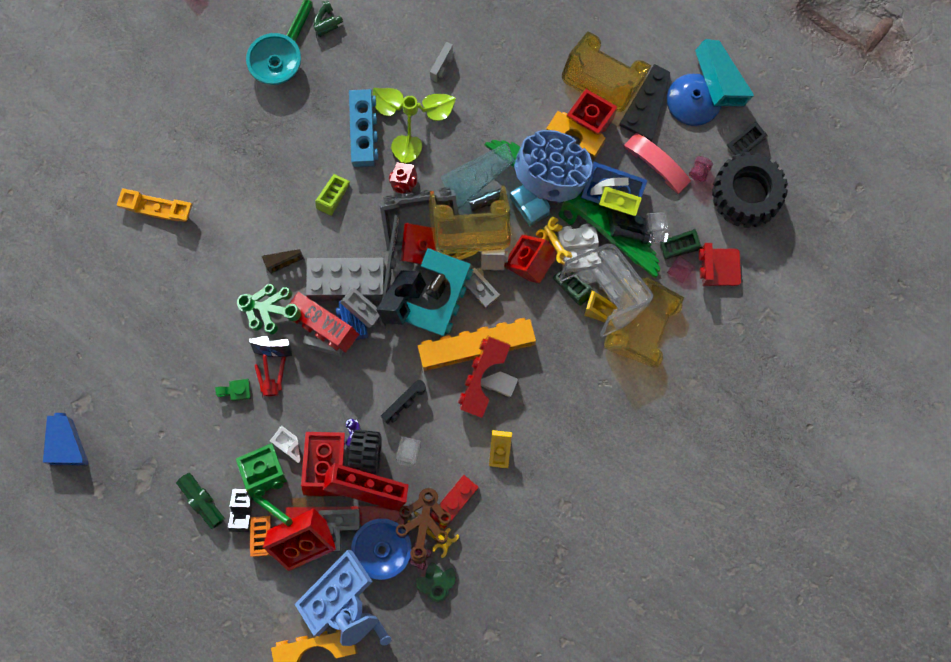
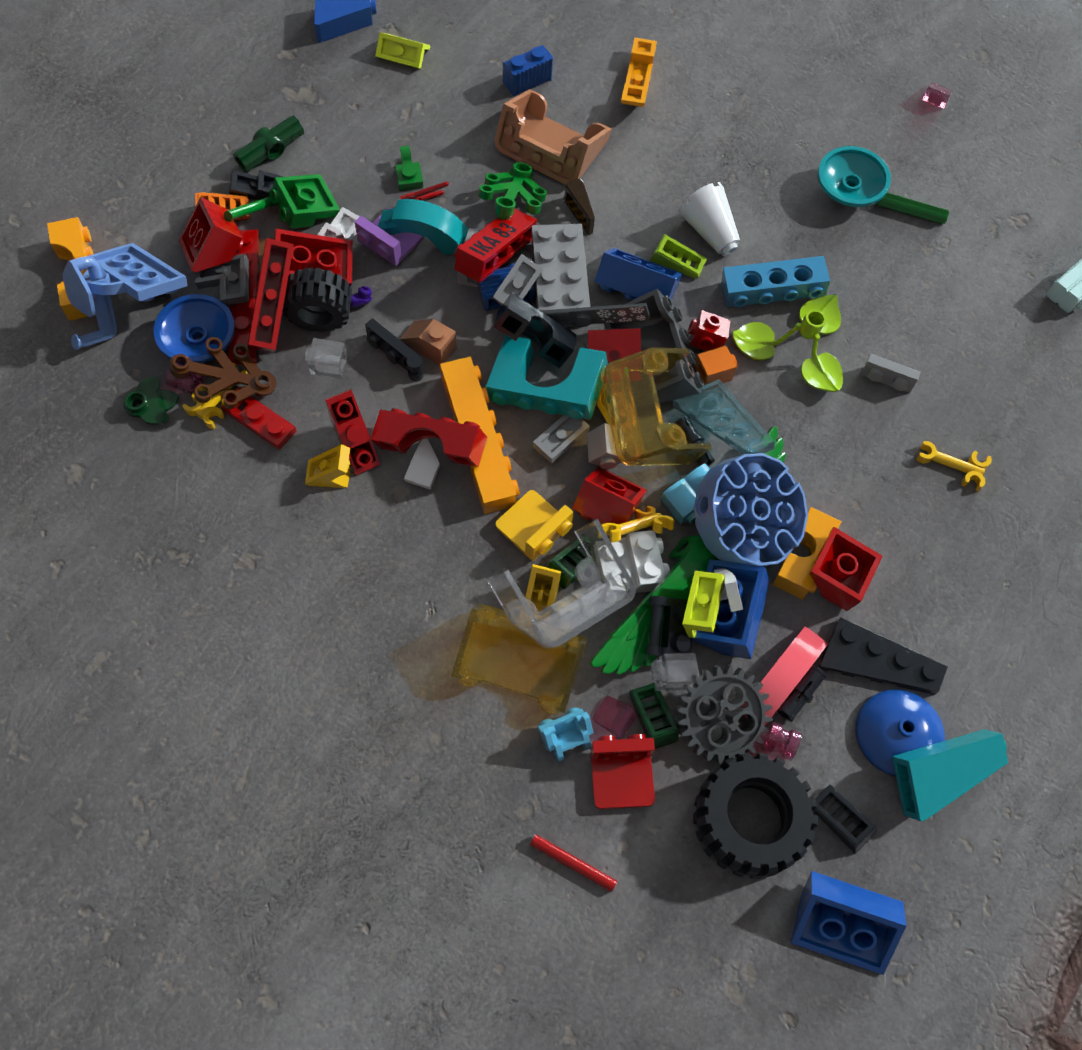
camera: 80 degrees right, 10 degrees down
(107, 392) = (400, 50): none -> neon yellow panel
(143, 291) = (527, 70): none -> blue brick
(218, 278) = (545, 144): none -> nougat windscreen
(264, 346) = (463, 199): slope -> none
(295, 377) = (425, 220): none -> teal arch
(298, 403) = (390, 247): none -> medium lavender bracket
(304, 164) = (712, 218): none -> white cone
(327, 25) = (915, 236): dark green plant -> none
(350, 223) = (635, 275): none -> blue slope
(395, 377) = (431, 340): none -> nougat slope
(430, 176) = (716, 365): none -> orange brick
(437, 286) = (553, 372): dark brown slope -> none
(476, 430) = (352, 431): none -> red slope
(515, 22) = (973, 468): none -> yellow bar
(548, 309) = (534, 524): none -> yellow bracket
(603, 74) = (915, 588): clear yellow windscreen -> none
(670, 151) = (812, 678): none -> black pin
(685, 200) = (714, 689): none -> dark grey gear
(694, 298) = (566, 732): none -> medium azure piece
(772, 301) = (573, 863): none -> red bar
(808, 146) = (848, 923): none -> blue slope

